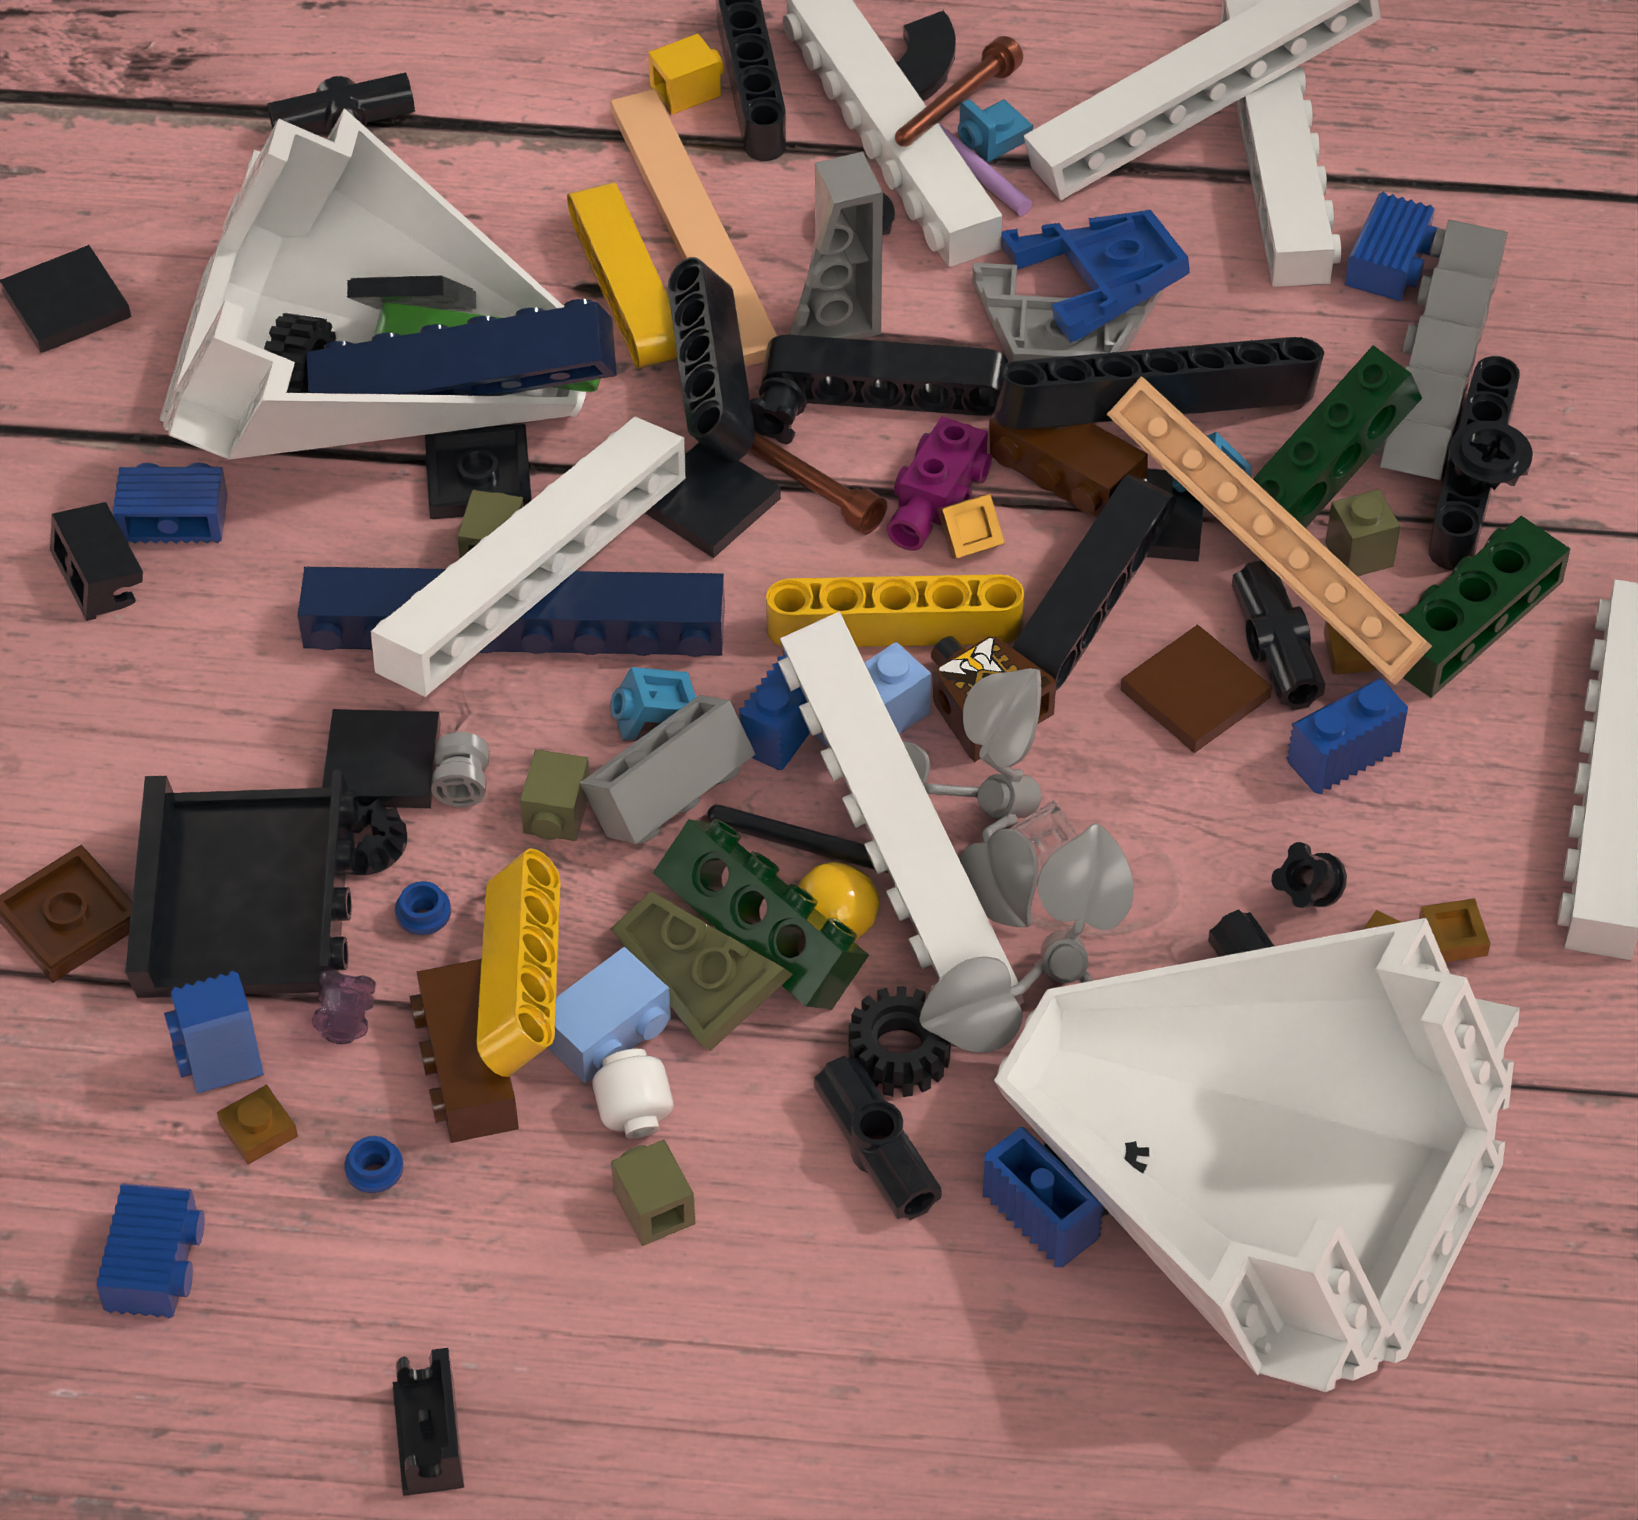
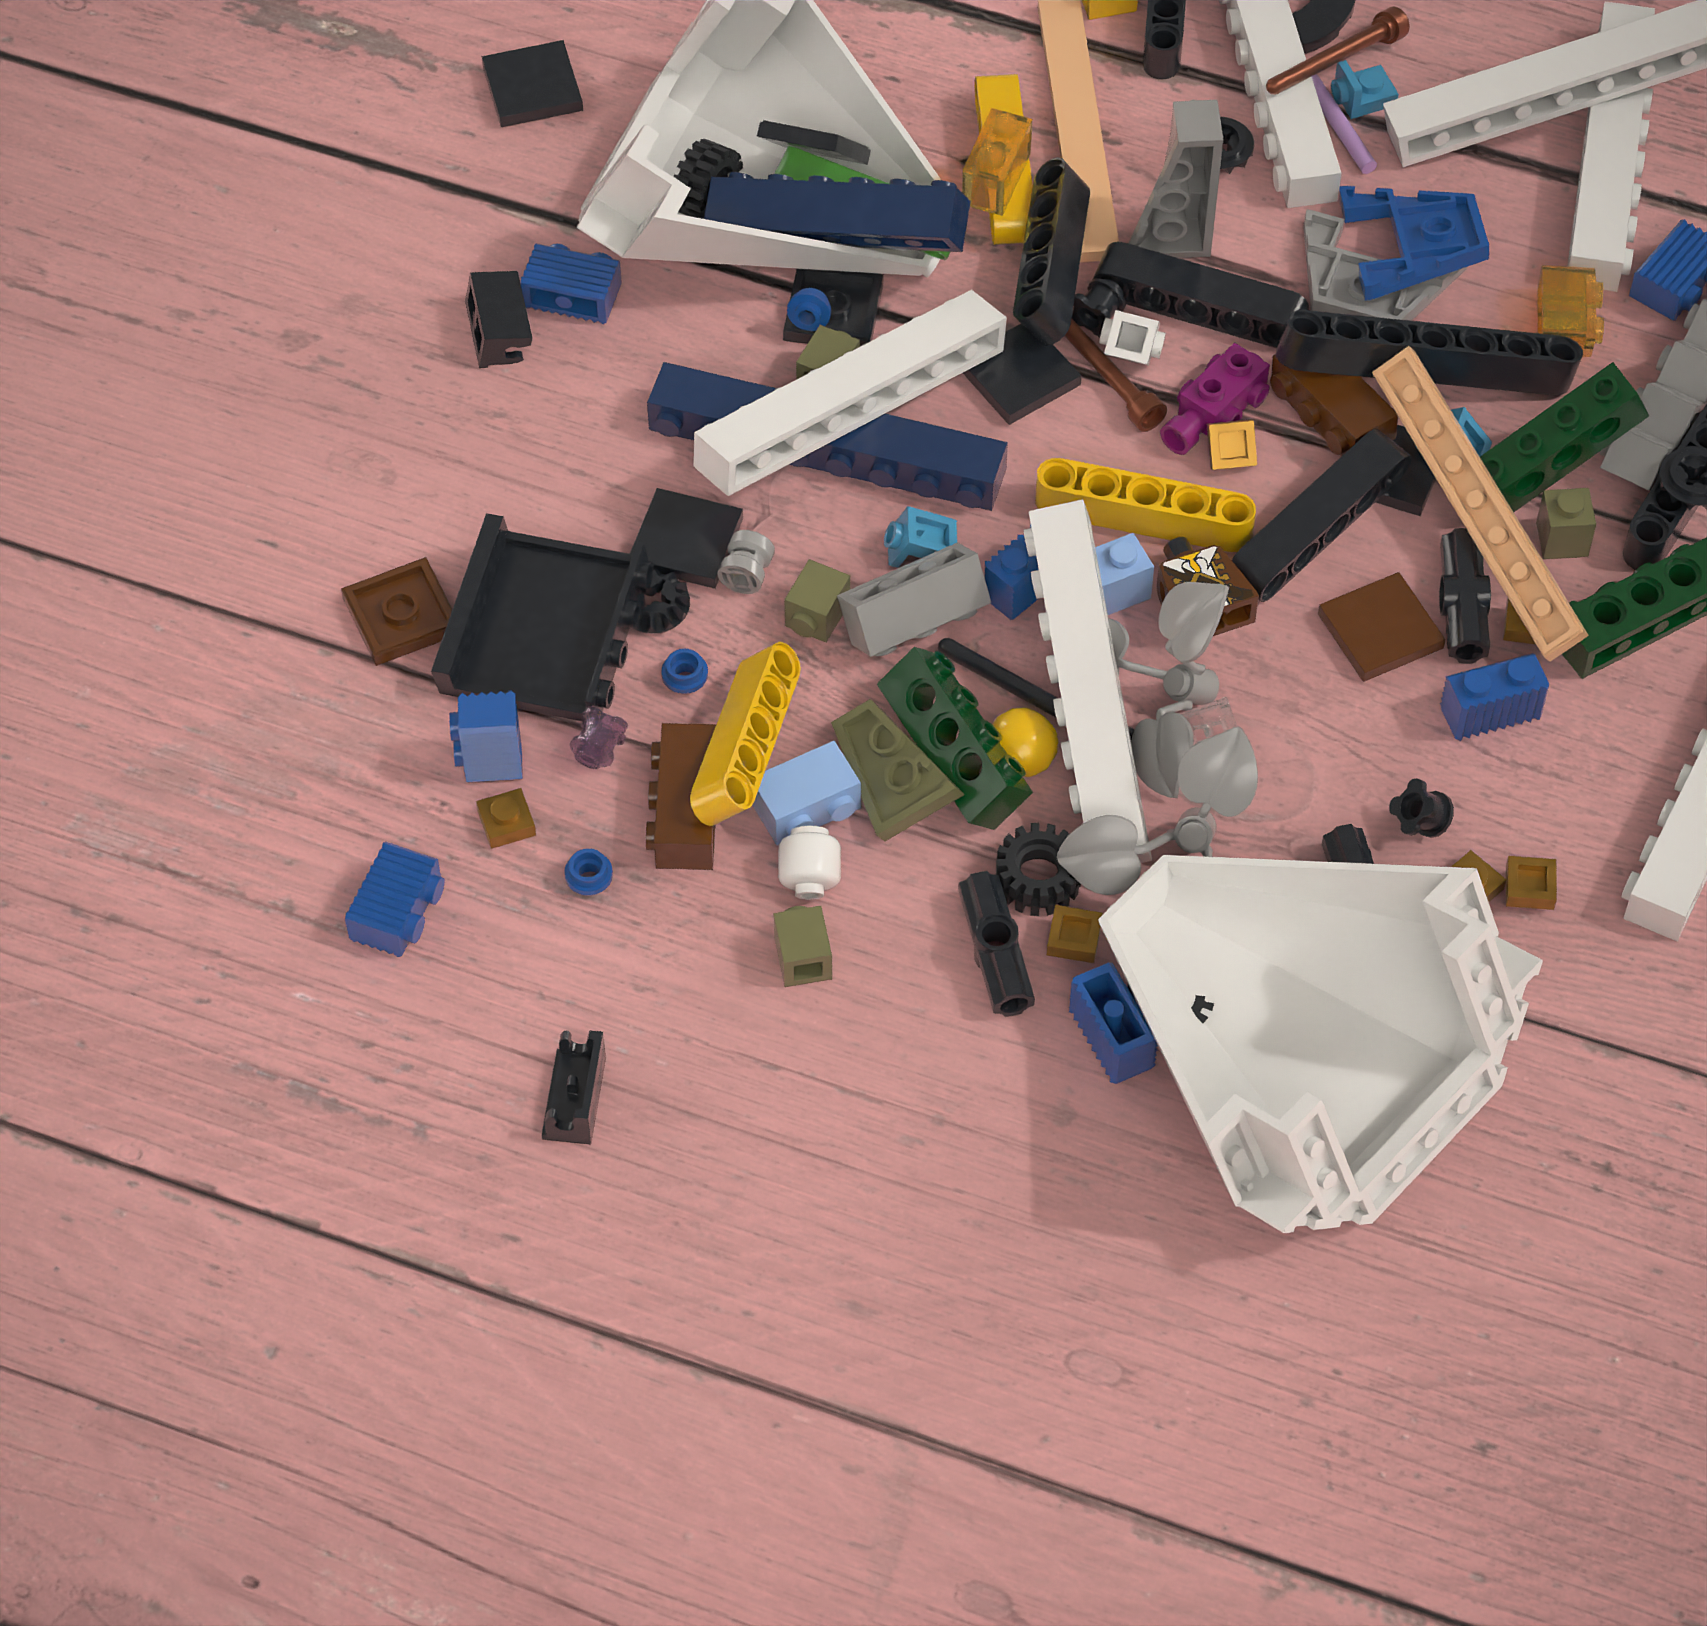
camera: 15 degrees right, 5 degrees up
(454, 465) = (813, 301): none -> blue plate
(624, 271) = (997, 161): none -> clear yellow brick
(827, 434) = (1132, 338): none -> white brick
(963, 1105) = (1074, 934): none -> pearl gold plate
(1288, 303) = (1569, 304): none -> clear yellow brick

